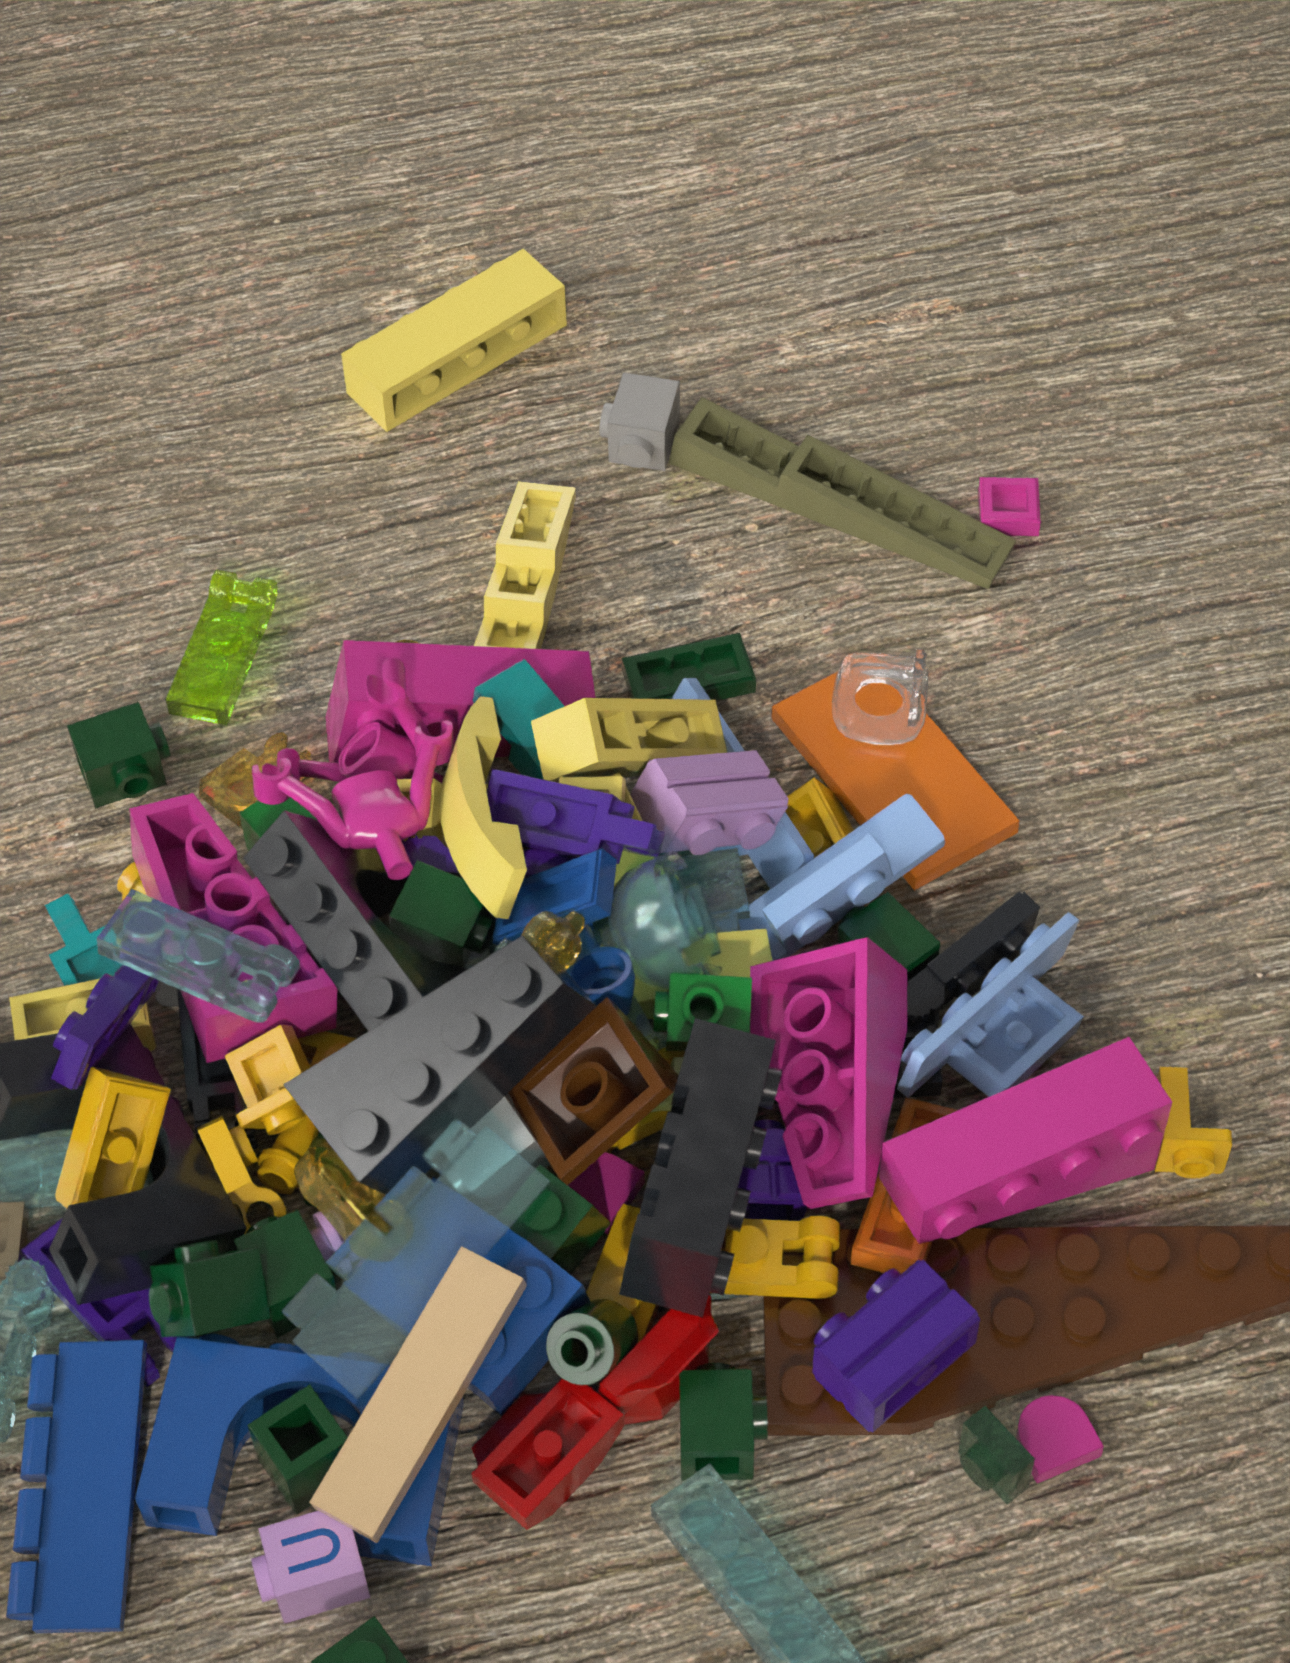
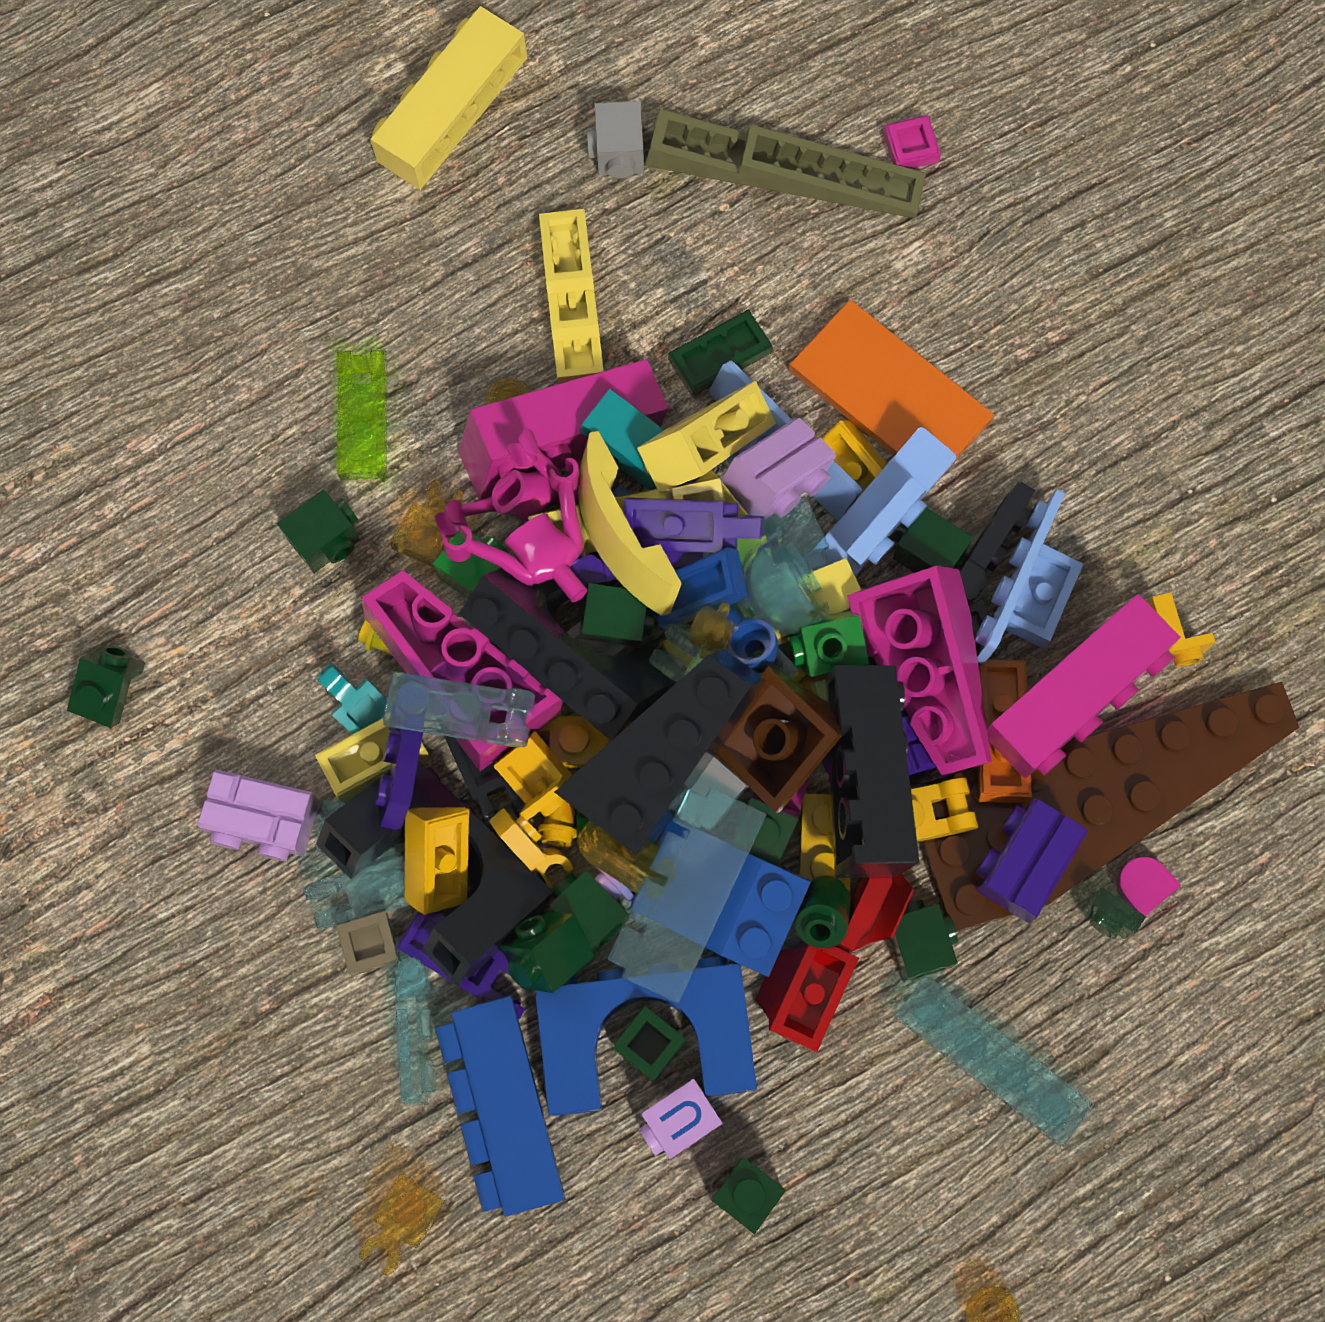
camera: 15 degrees left, 20 degrees up
(418, 1394) = (724, 994): tan tile -> none
(902, 672) = (883, 316): clear piece -> none

